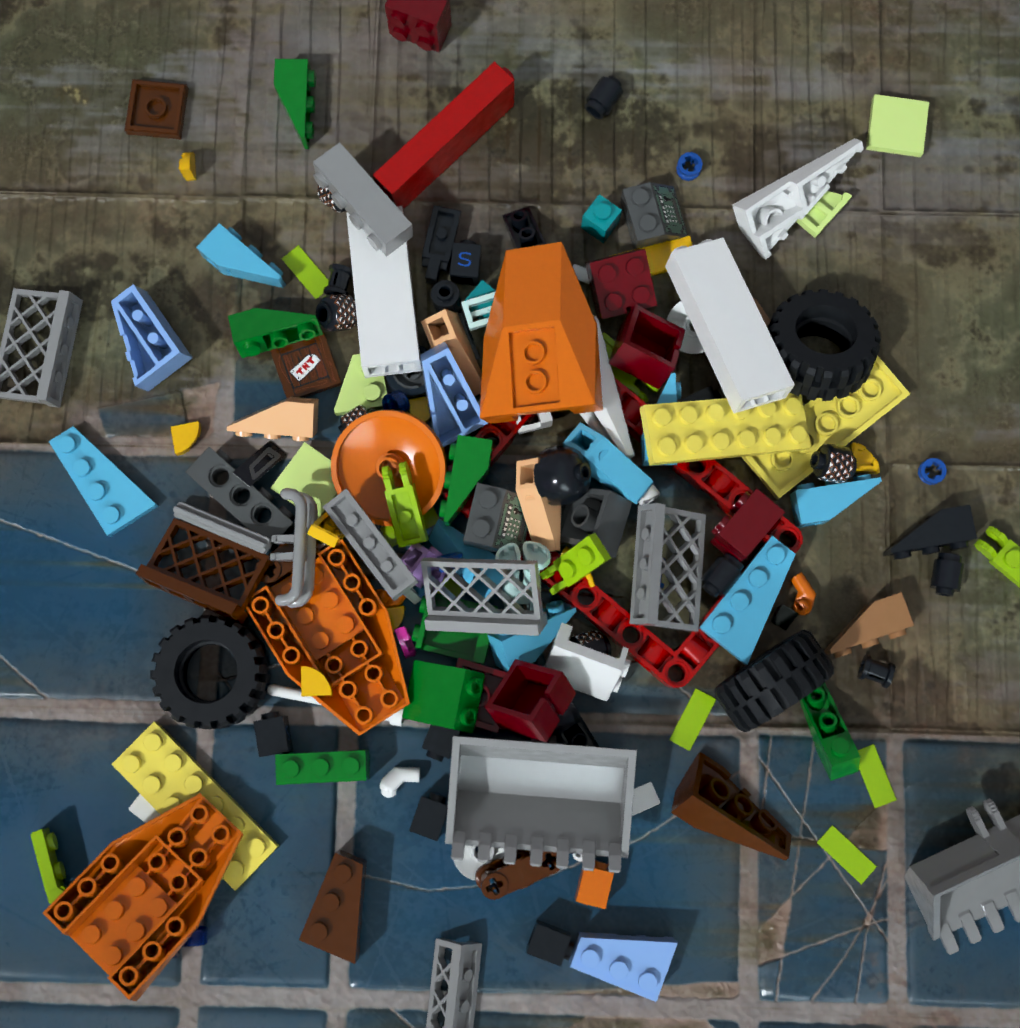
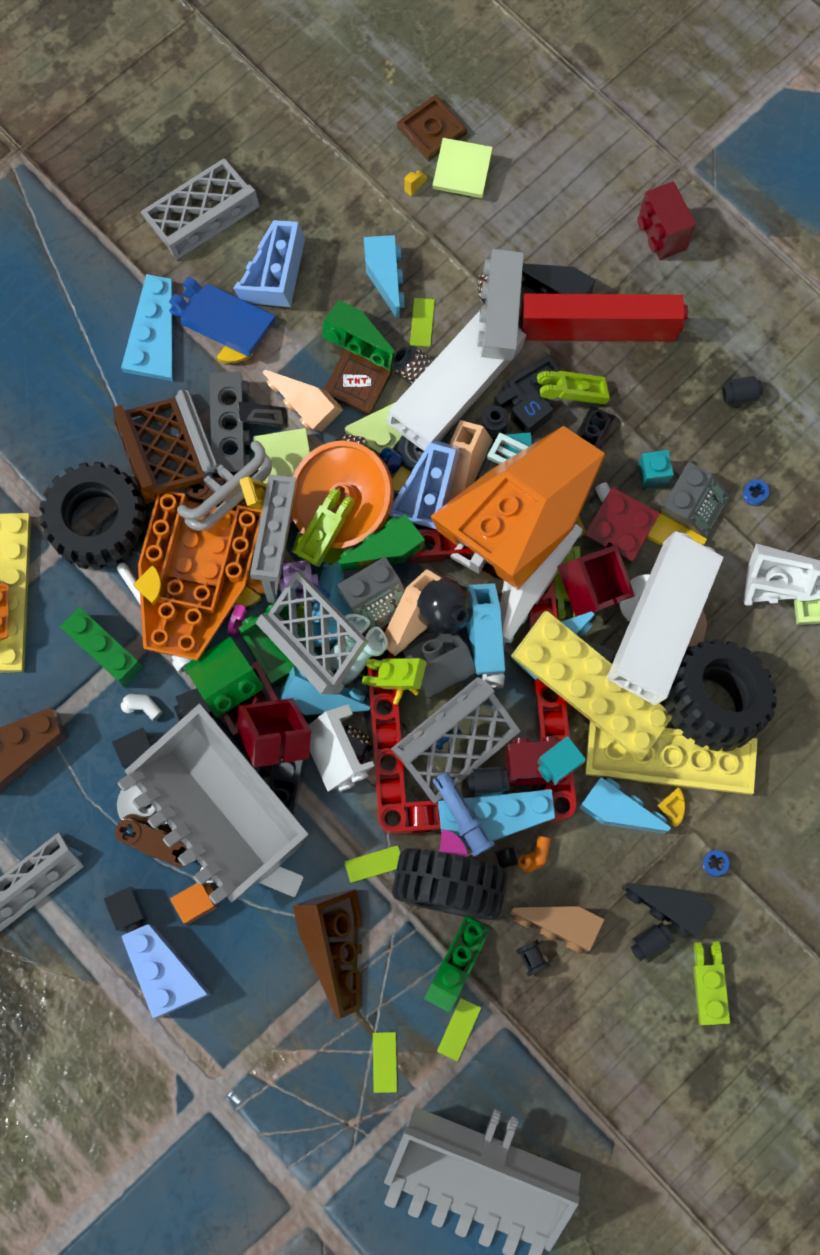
camera: 45 degrees right, 5 degrees down
(146, 417) = (221, 316): none -> blue tile
(215, 119) = (462, 168): none -> yellowish green tile
(273, 734) = (92, 595): black brick -> none
(293, 86) = (535, 194): green slope -> none
(338, 279) = (435, 345): black bush -> none
(383, 140) = (556, 279): none -> black slope
(478, 212) = (574, 387): none -> lime hinge
(745, 622) = (469, 826): none -> medium blue pin
(746, 651) = (452, 844): none -> dark pink tile
(772, 509) = (560, 761): none -> teal brick
(833, 463) = (646, 784): black head -> none

